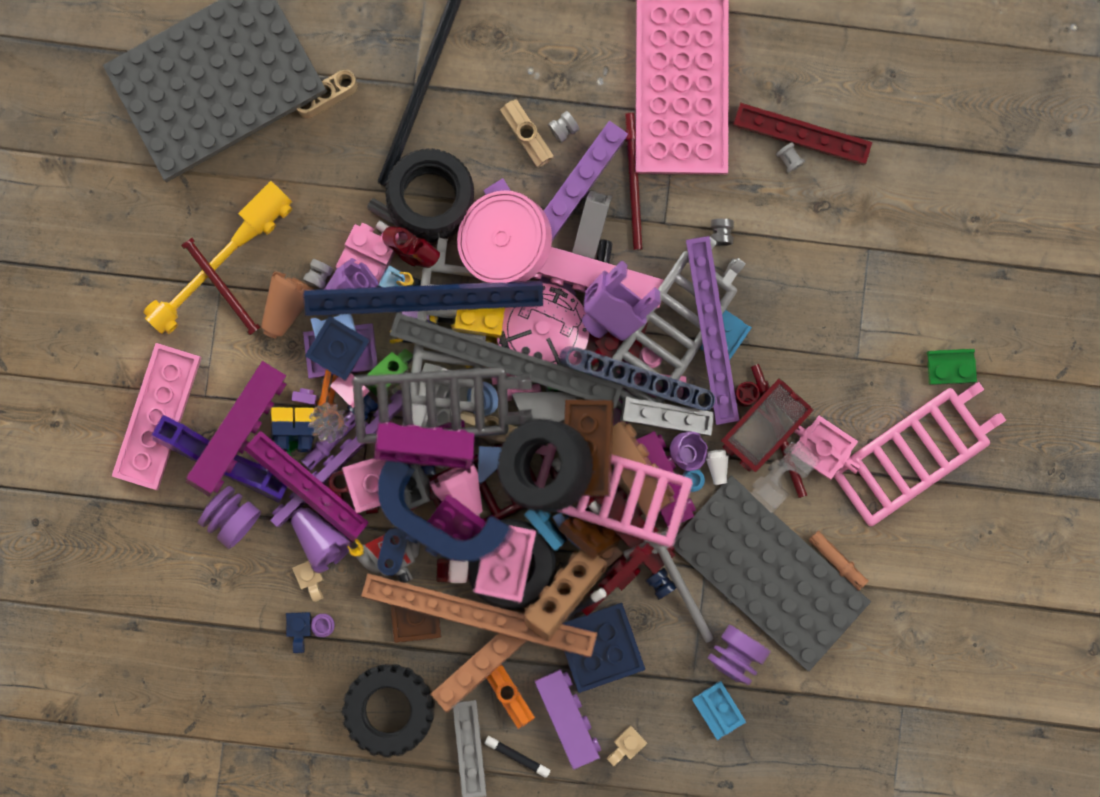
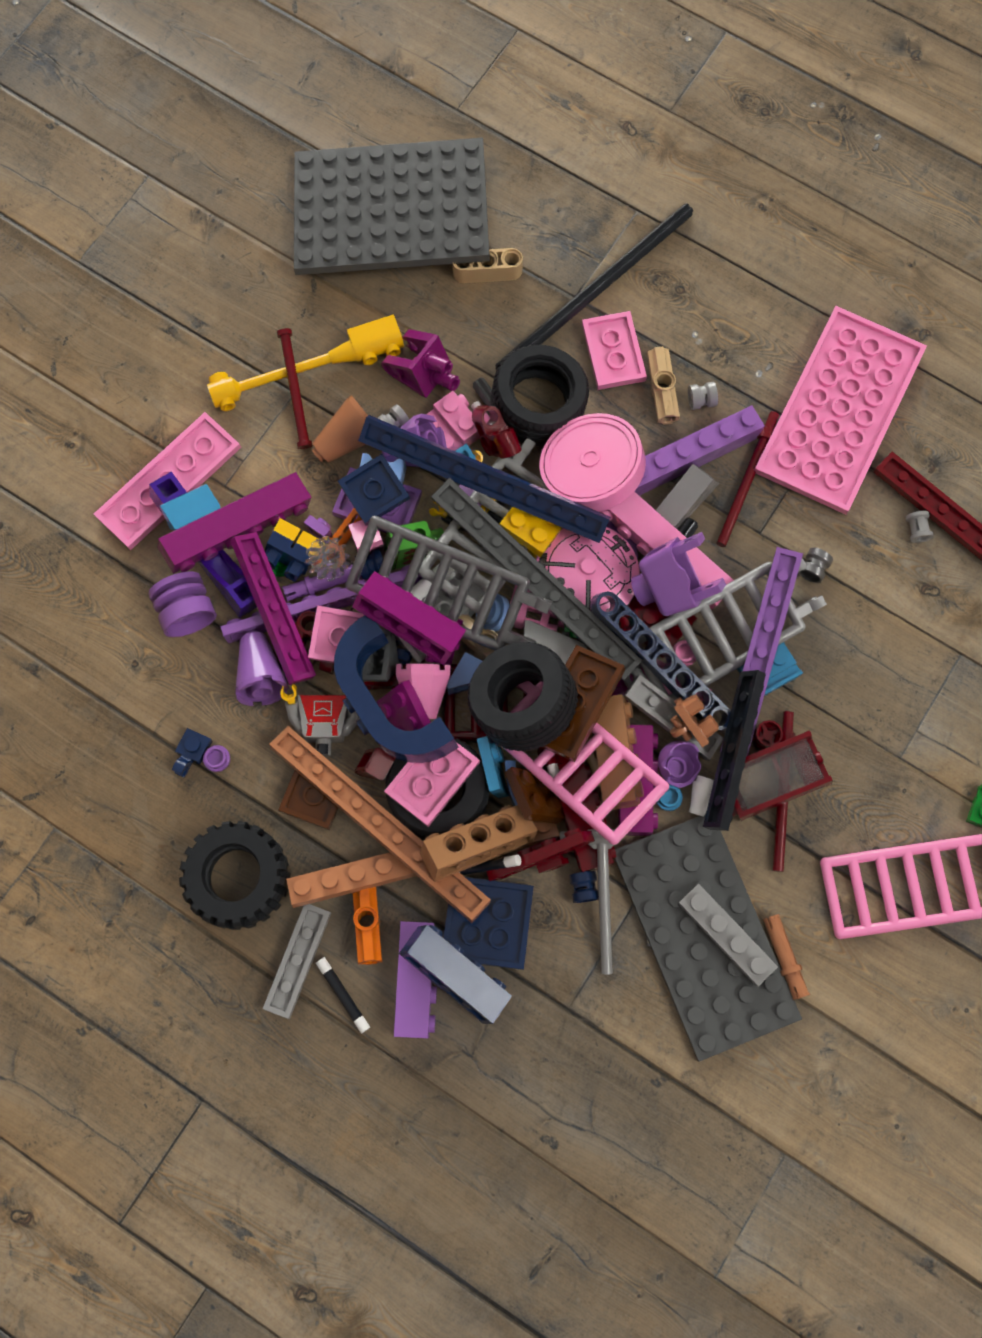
camera: 30 degrees right, 10 degrees down
(195, 437) = (189, 507): none -> dark azure slope
(309, 579) = (228, 707): tan plate -> none
(325, 214) = (427, 369): none -> magenta piece
(392, 552) = (326, 716): dark blue plate -> none
(470, 120) = (614, 350): none -> bright pink plate
(596, 700) = (456, 974): none -> brick
(628, 744) = (466, 1041): tan plate -> none
(682, 419) = (700, 729): none -> nougat hips
(718, 710) = (581, 1054): dark azure plate -> none
(727, 422) = (734, 750): none -> black plate
(738, 655) = (631, 1002): medium lavender wheel -> none
(770, 489) = (747, 842): clear arch -> none
(787, 567) = (728, 935): none -> light grey plate
(830, 446) = (825, 831): bright pink plate -> none

